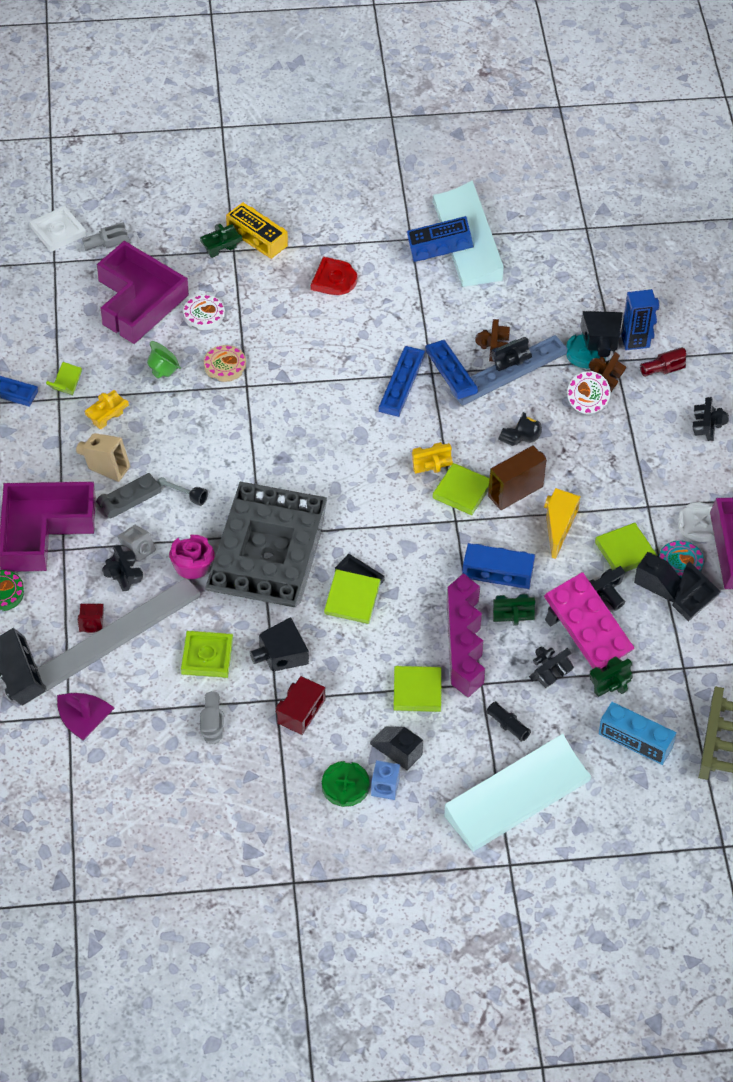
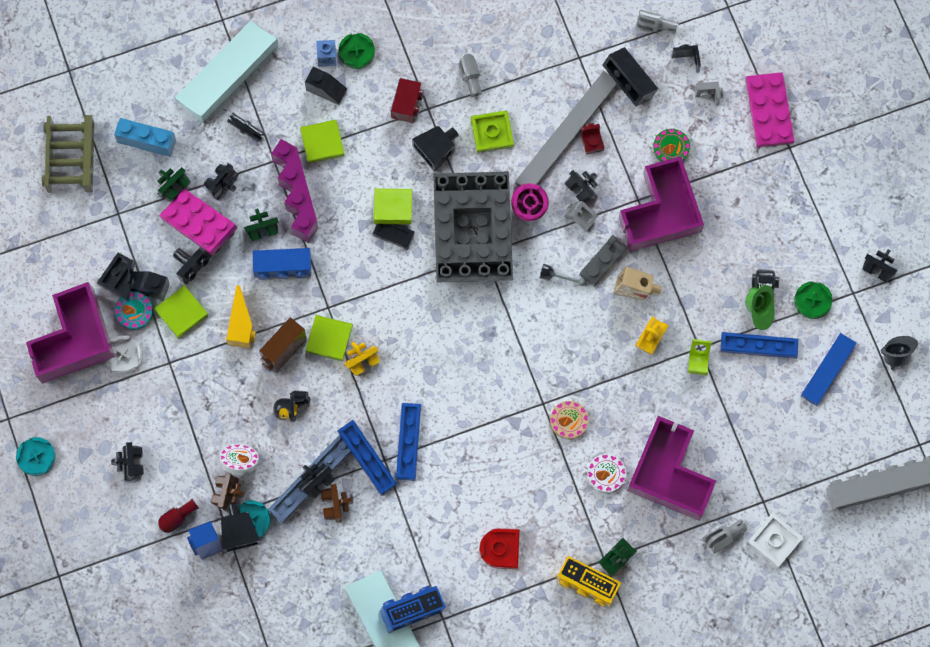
camera: 165 degrees right, 20 degrees up
(82, 712) = (570, 62): magenta shield -> none
(162, 360) = (622, 403): bright green piece -> none

